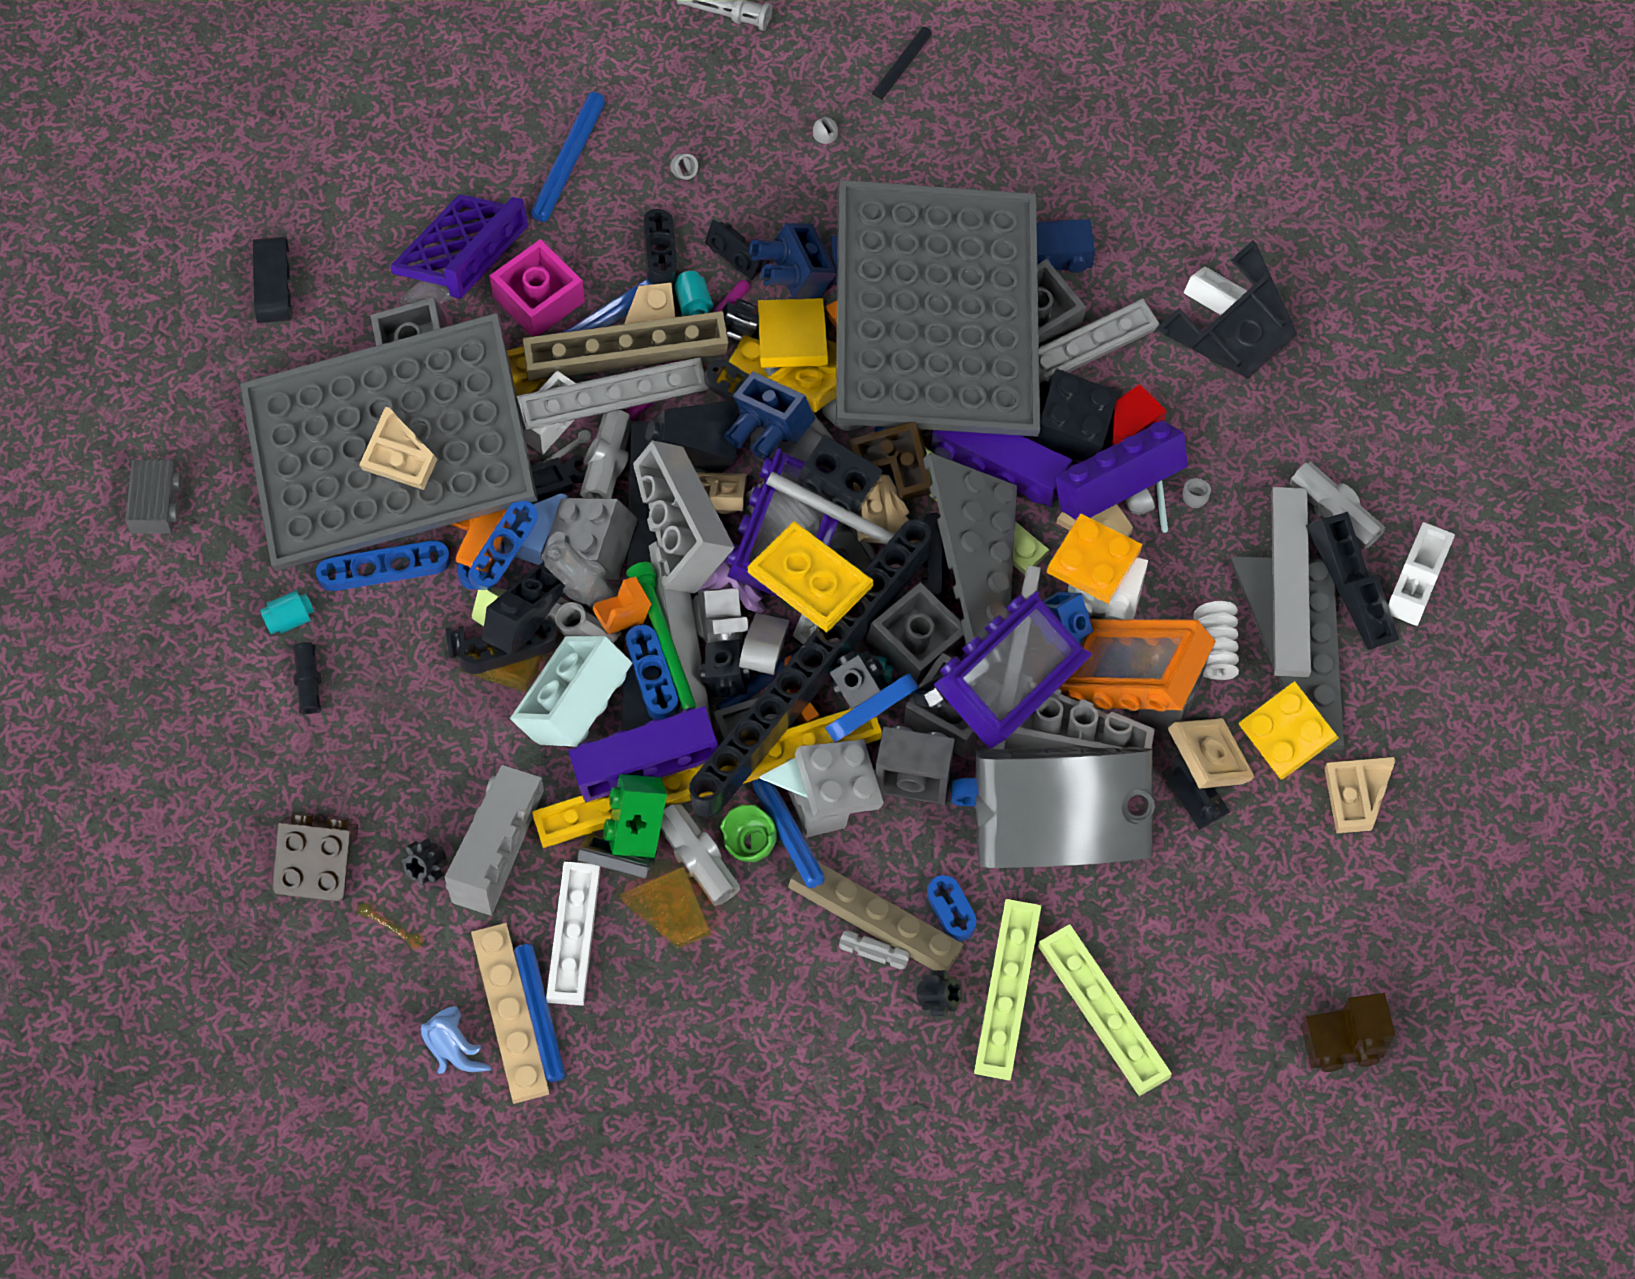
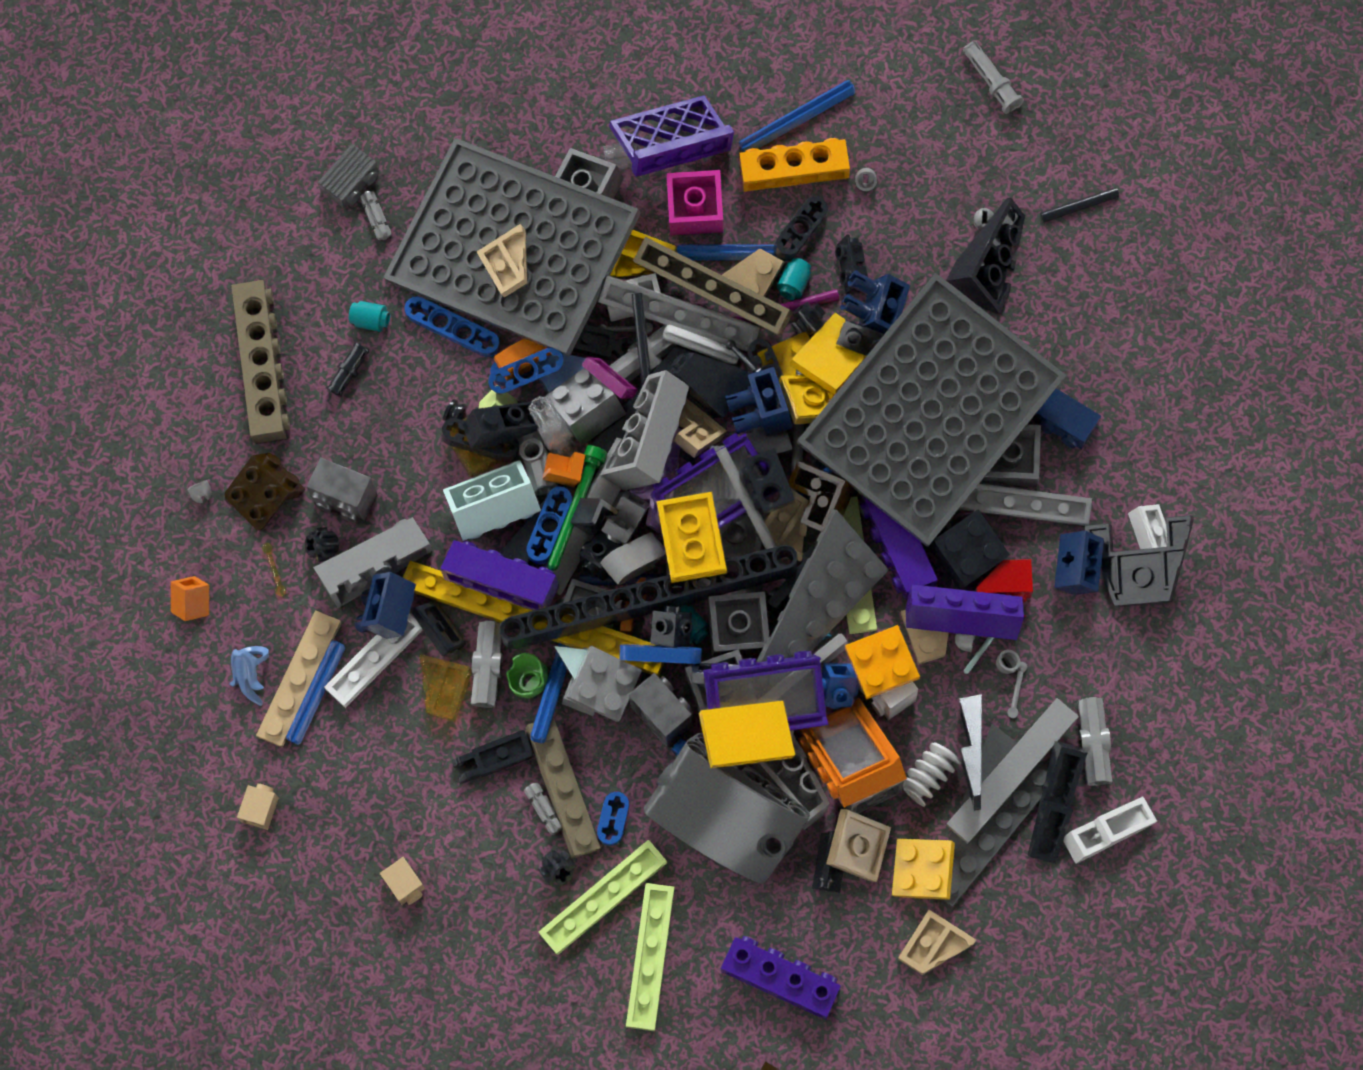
camera: 45 degrees right, 10 degrees up
(211, 516) = (375, 215): none -> light grey axle
(244, 905) = (199, 490): none -> light grey hinge
(260, 794) = (246, 298): none -> dark tan brick
(270, 279) = (535, 73): black beam -> none
(323, 1017) = (189, 598): none -> orange panel
(404, 791) = (341, 490): none -> flat silver brick
(551, 866) = (386, 606): none -> dark blue brick
(576, 1167) = (258, 806): none -> tan brick
(596, 491) = (609, 377): none -> magenta tile
(597, 435) = (641, 336): none -> black bar
(599, 211) = (783, 174): none -> light orange brick
(636, 815) = (464, 612): green brick -> none
(649, 410) = (699, 344): none -> white axle
(685, 391) = (731, 345): none -> black hinge
(686, 628) = (590, 514): none -> black panel
(782, 935) = (495, 756): none -> black hinge
(794, 1126) = (403, 882): none -> tan brick
(809, 300) = (858, 337): none -> black hinge
(855, 150) = (984, 263): none -> black wedge
(1031, 708) = (746, 734): none -> yellow tile
(1183, 359) = (1079, 562): none -> dark blue brick
(1238, 535) = (1013, 711): none -> light grey hinge
(1247, 930) = (781, 978): none -> dark purple brick
(1250, 595) = (971, 756): none -> slope

